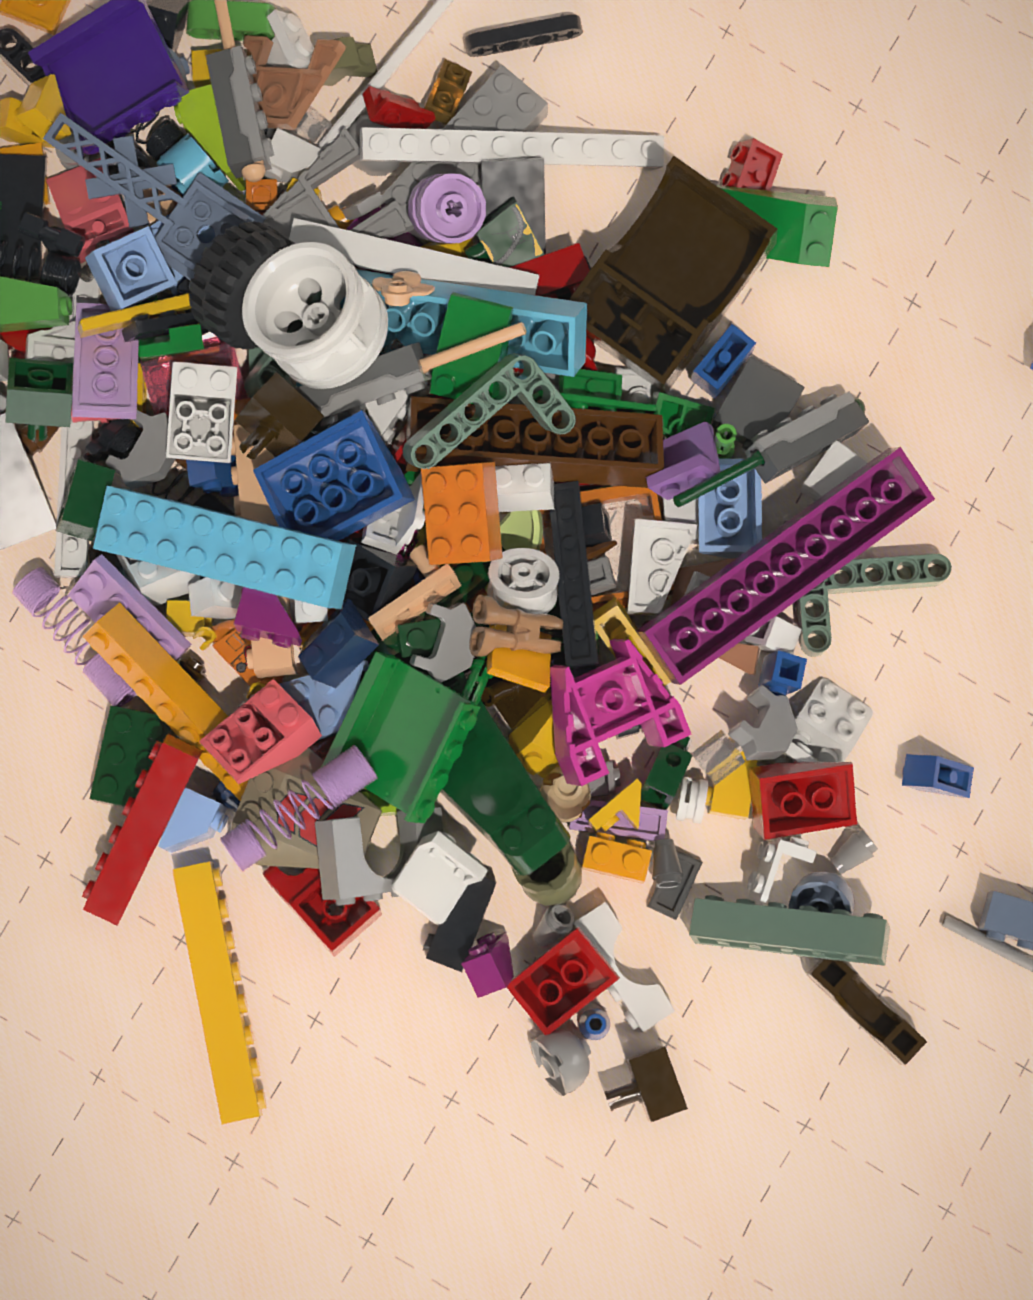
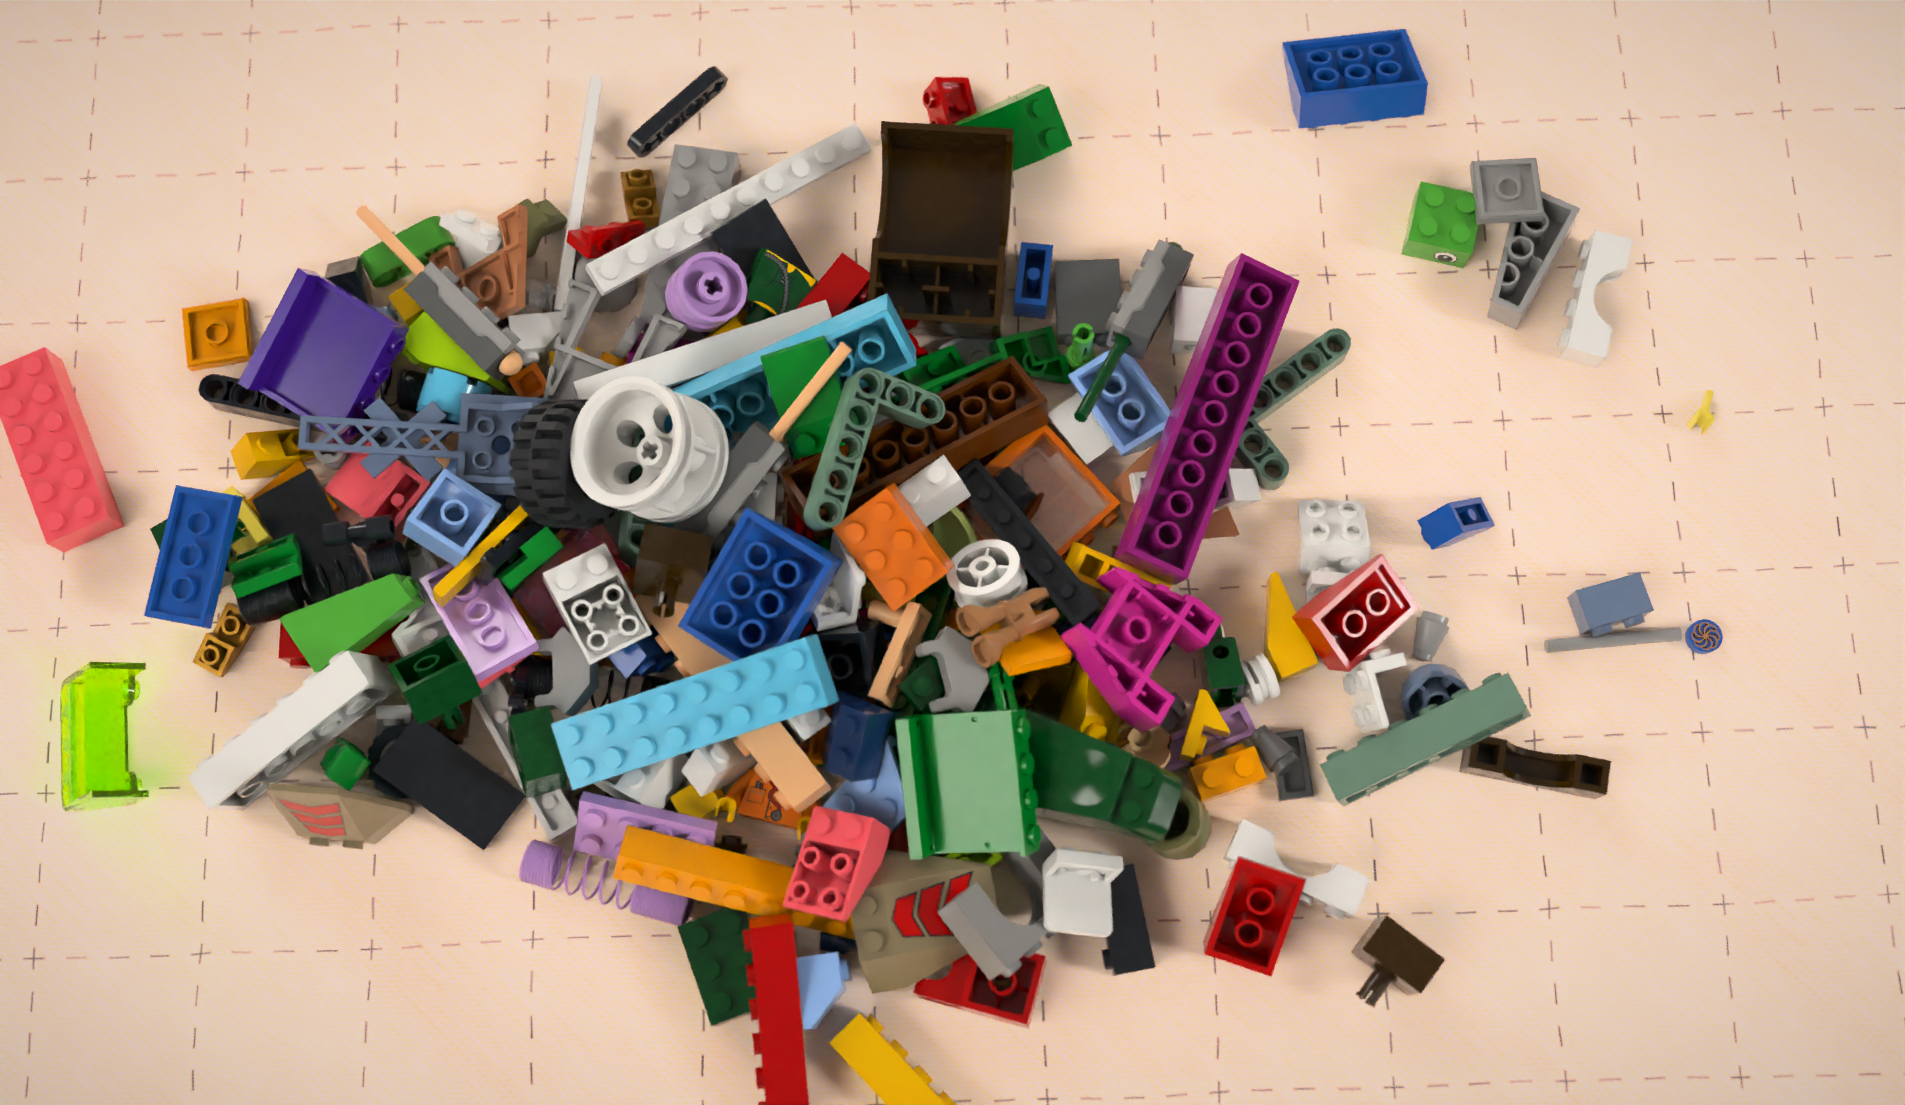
camera: 25 degrees left, 5 degrees down
(42, 107) = (280, 425): yellow slope -> none
(264, 617) = (773, 752): magenta slope -> none
(338, 781) = (935, 862): lavender piece -> none
(401, 287) = (711, 381): light nougat plate -> none
(489, 964) = (1177, 943): magenta slope -> none
(554, 924) = (1210, 869): light grey cone -> none
(563, 1059) = (1298, 987): light grey cylinder -> none
(584, 1022) = (1295, 941): blue cone -> none
(601, 575) = (1049, 528): light grey tile -> none
(655, 560) = (1089, 488): white wing -> none
(687, 461) = (1063, 380): medium lavender bracket -> none
(719, 756) = (1259, 623): clear brick -> none
(771, 730) = (1289, 571): light grey piece -> none
(782, 672) = (1263, 517): blue brick -> none

